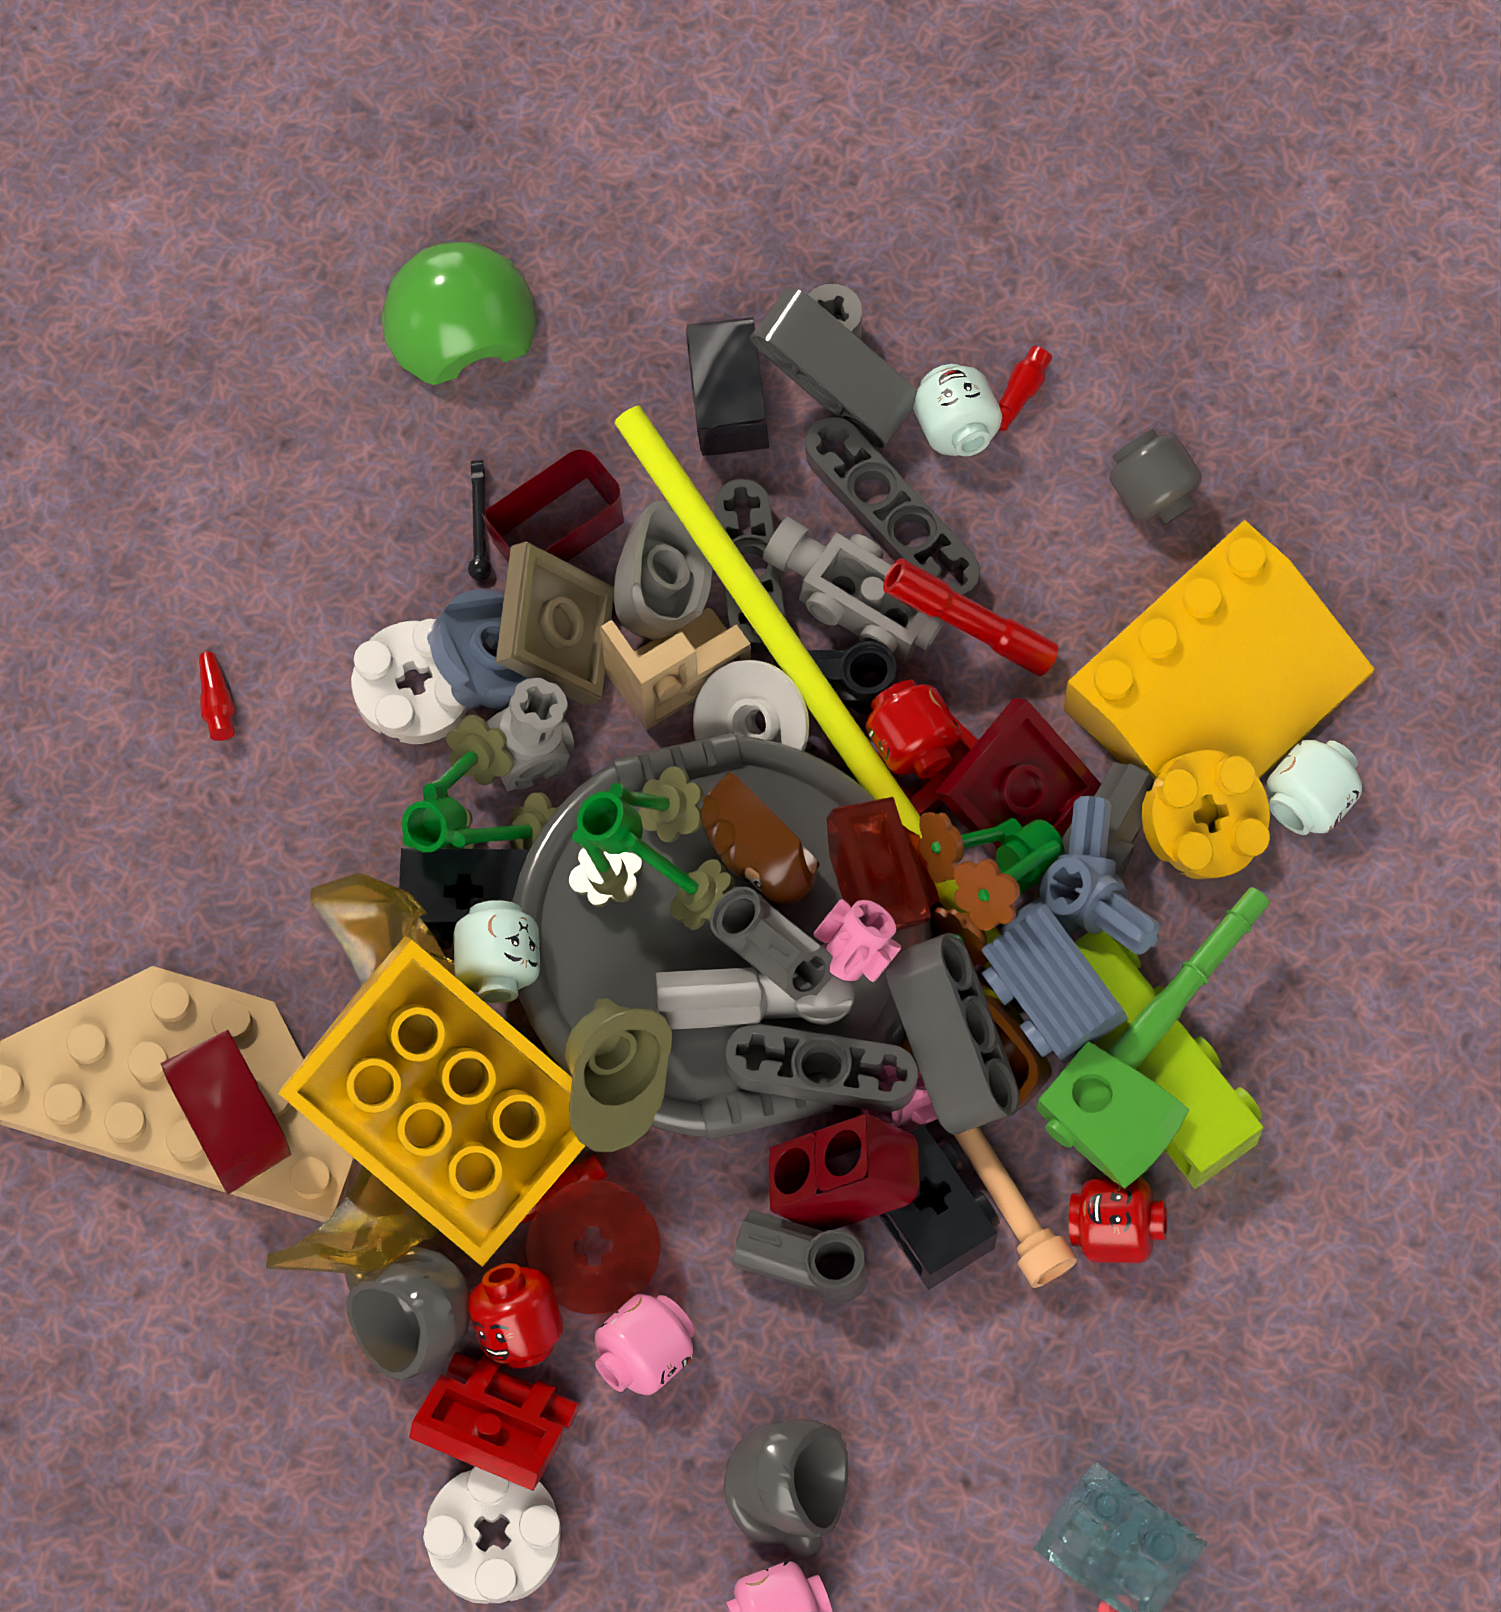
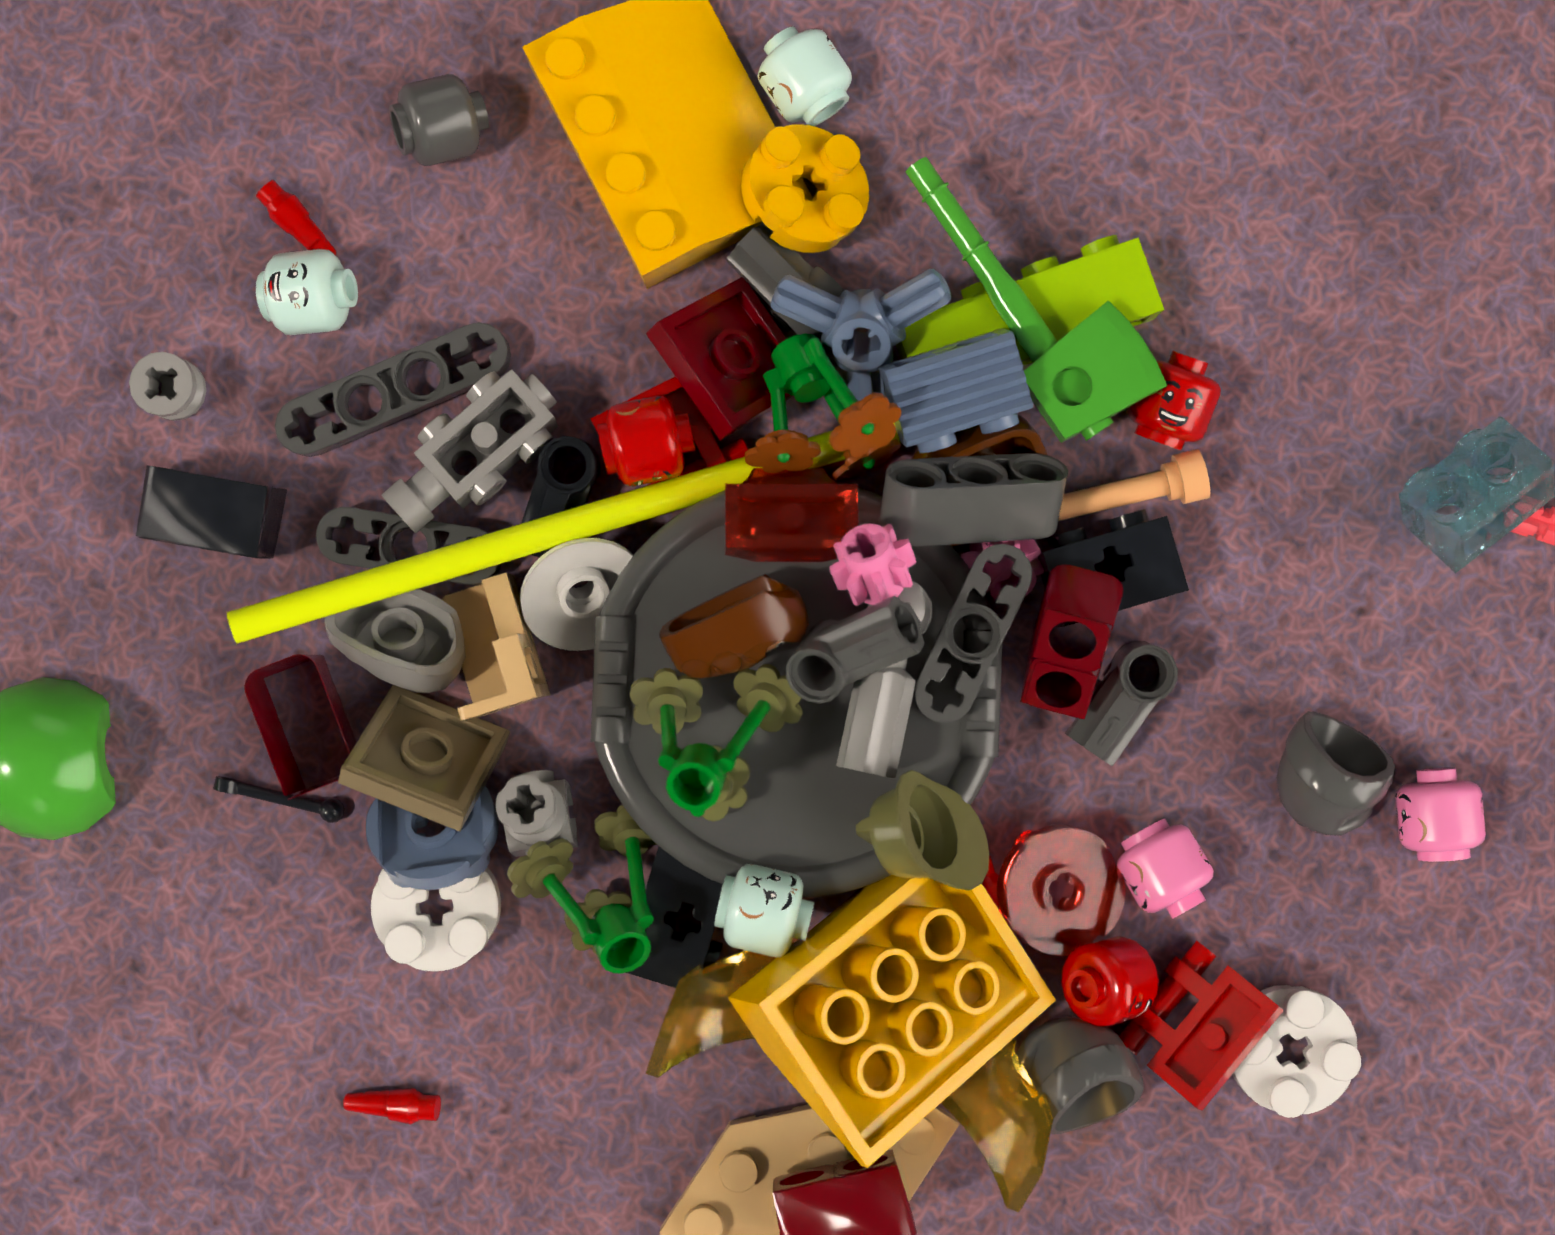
camera: 70 degrees left, 20 degrees up
(834, 366) = (227, 400): dark grey beam -> none
(939, 600) = (520, 375): red piece -> none

